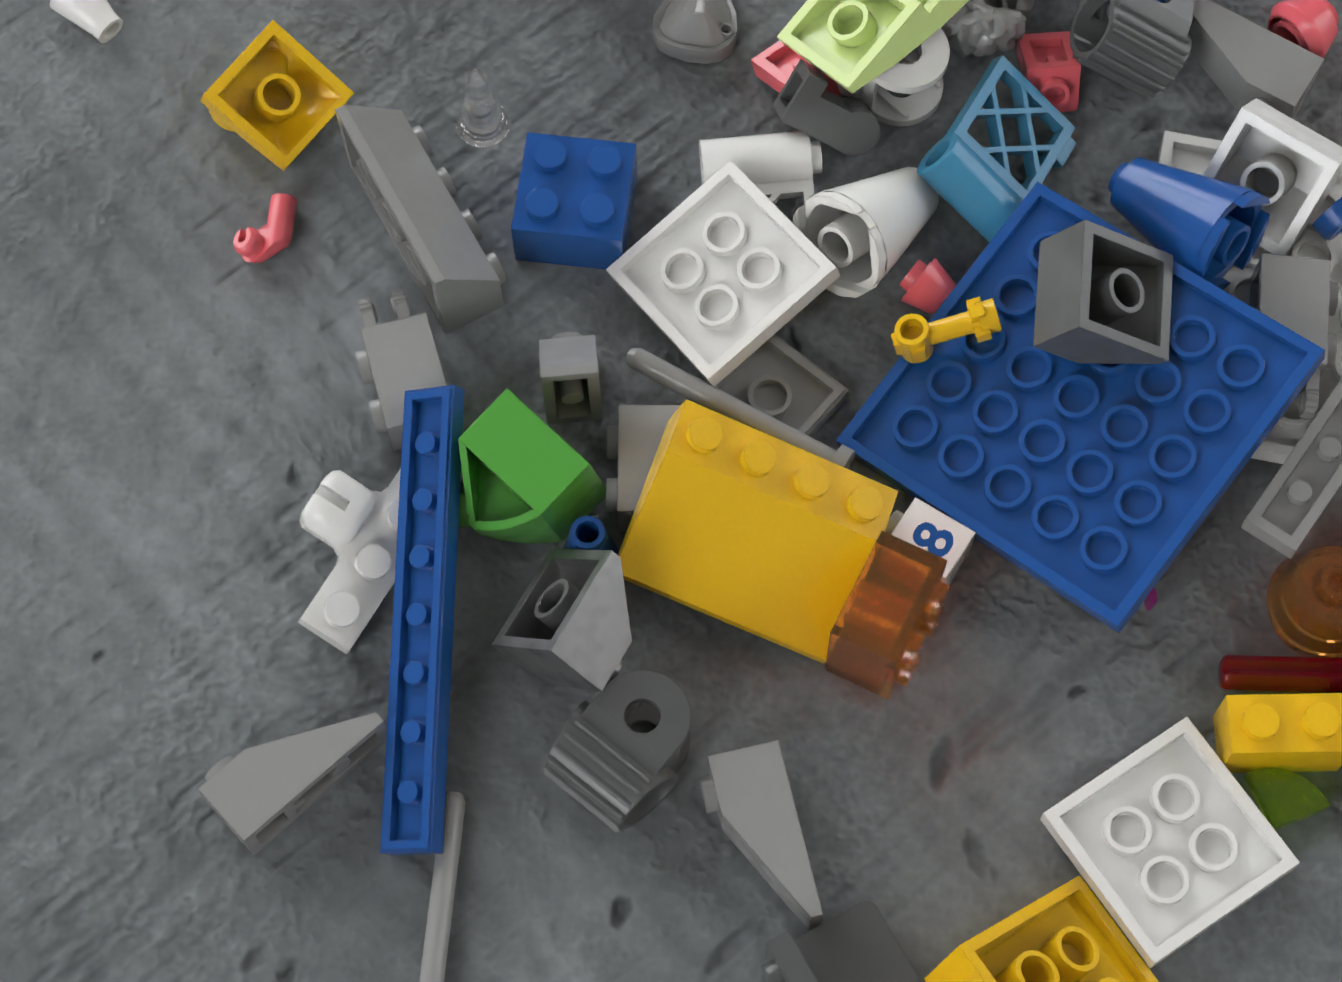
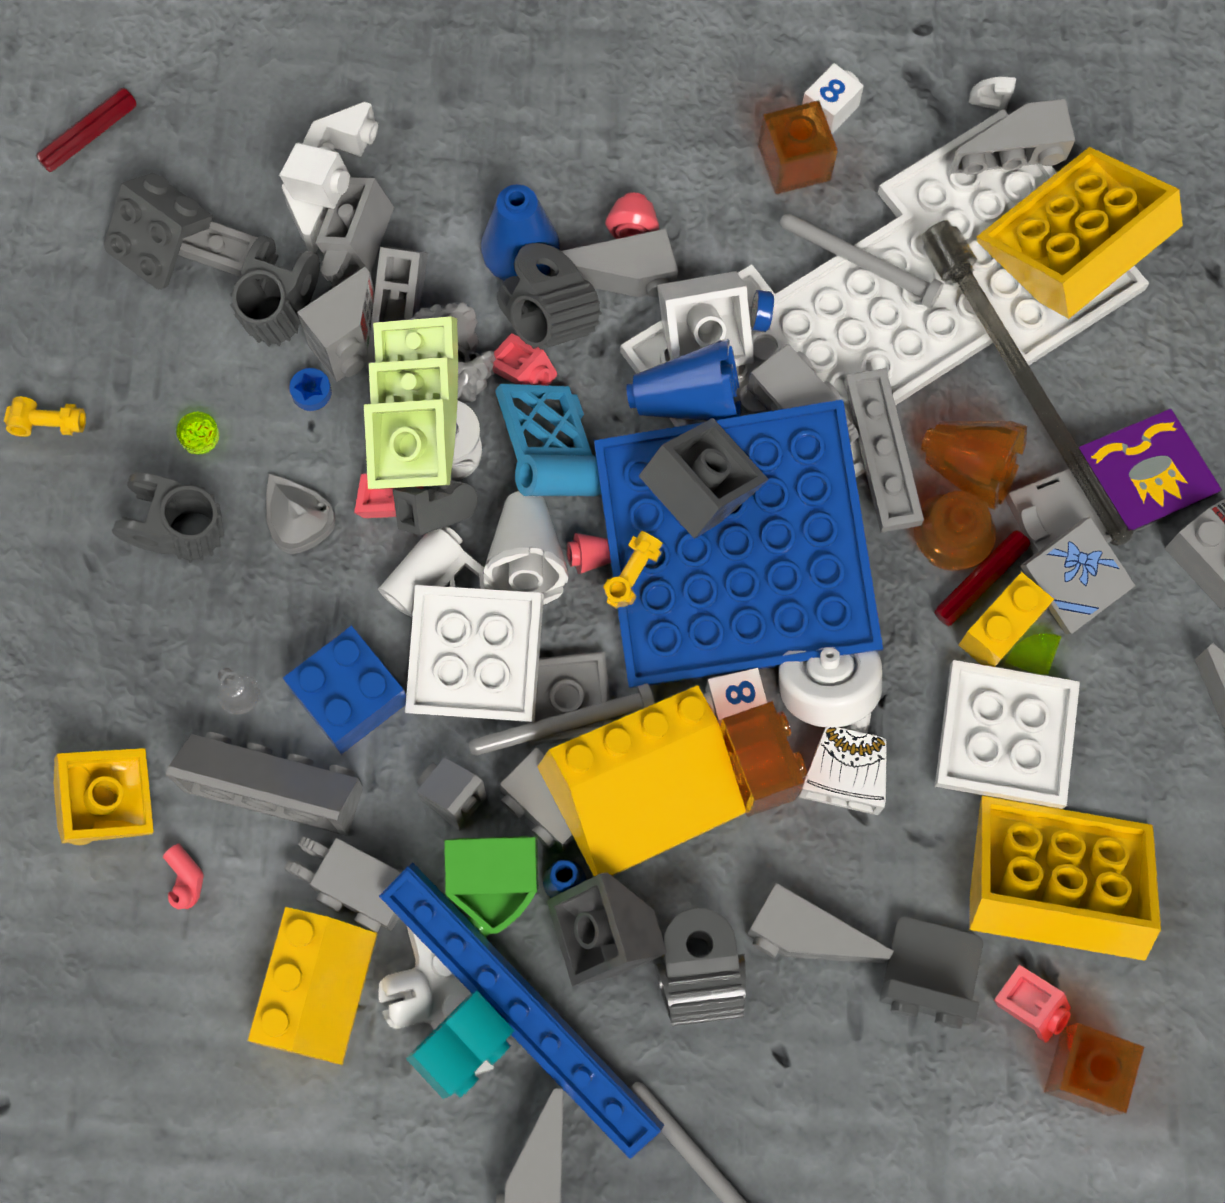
camera: 50 degrees left, 5 degrees up
(273, 422) = (313, 986): none -> yellow slope
(335, 588) = (461, 1046): none -> teal brick
(969, 711) = (848, 769): none -> white torso
(1031, 621) = (832, 687): none -> white wheel

